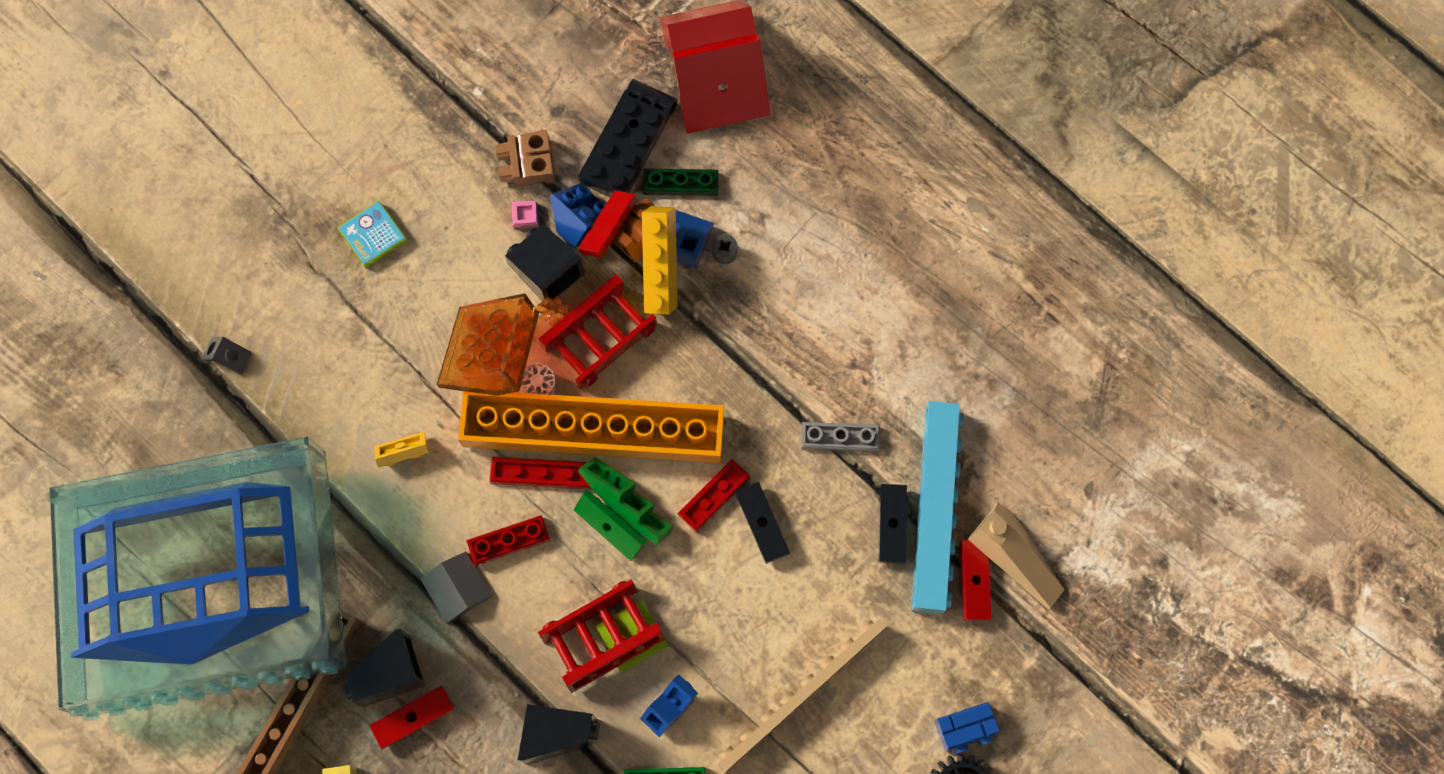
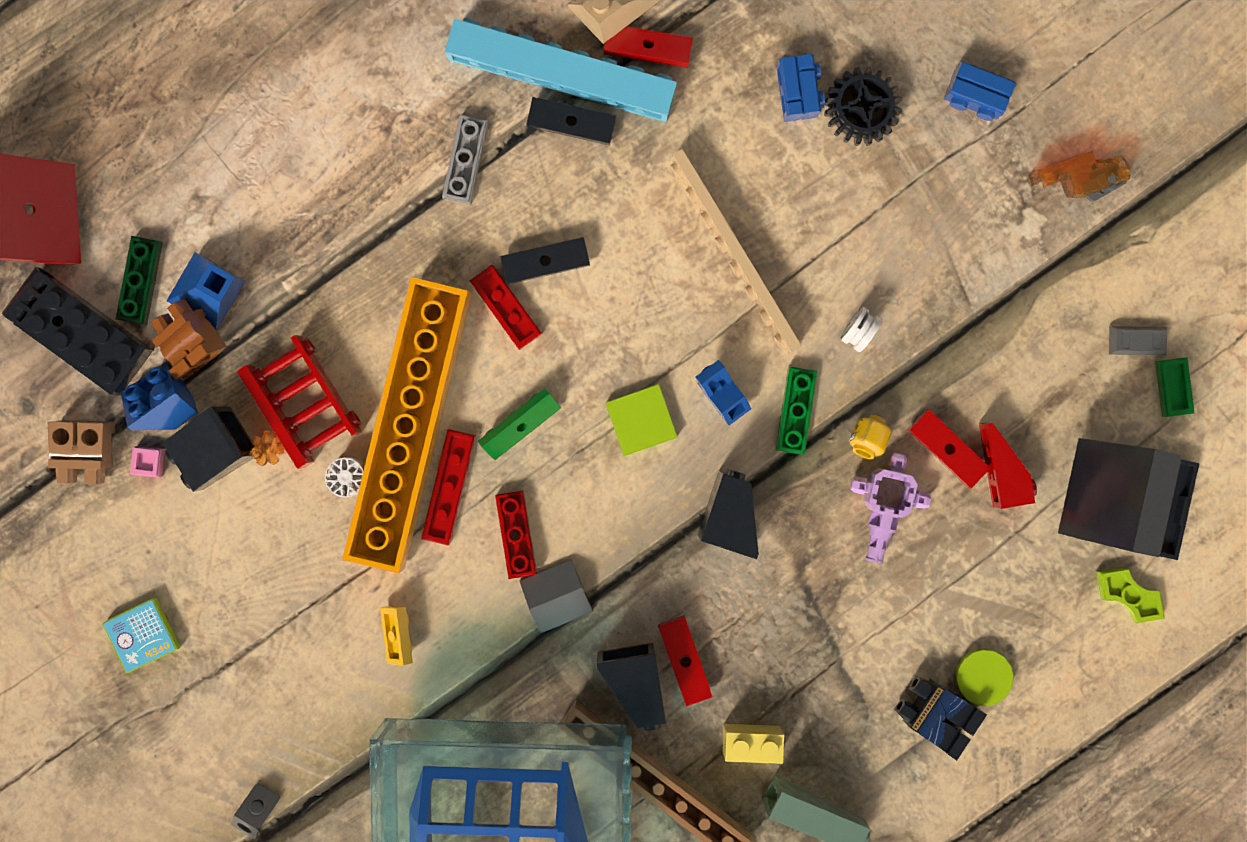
camera: 80 degrees left, 15 degrees up
(490, 346) = (297, 523): clear orange slope -> none
(601, 661) = (654, 430): red fence -> none
(608, 224) = (175, 369): red tile -> none
(620, 496) = (490, 407): green slope -> none
(659, 259) = (228, 318): yellow brick -> none
(723, 254) = (234, 246): dark grey wheel -> none

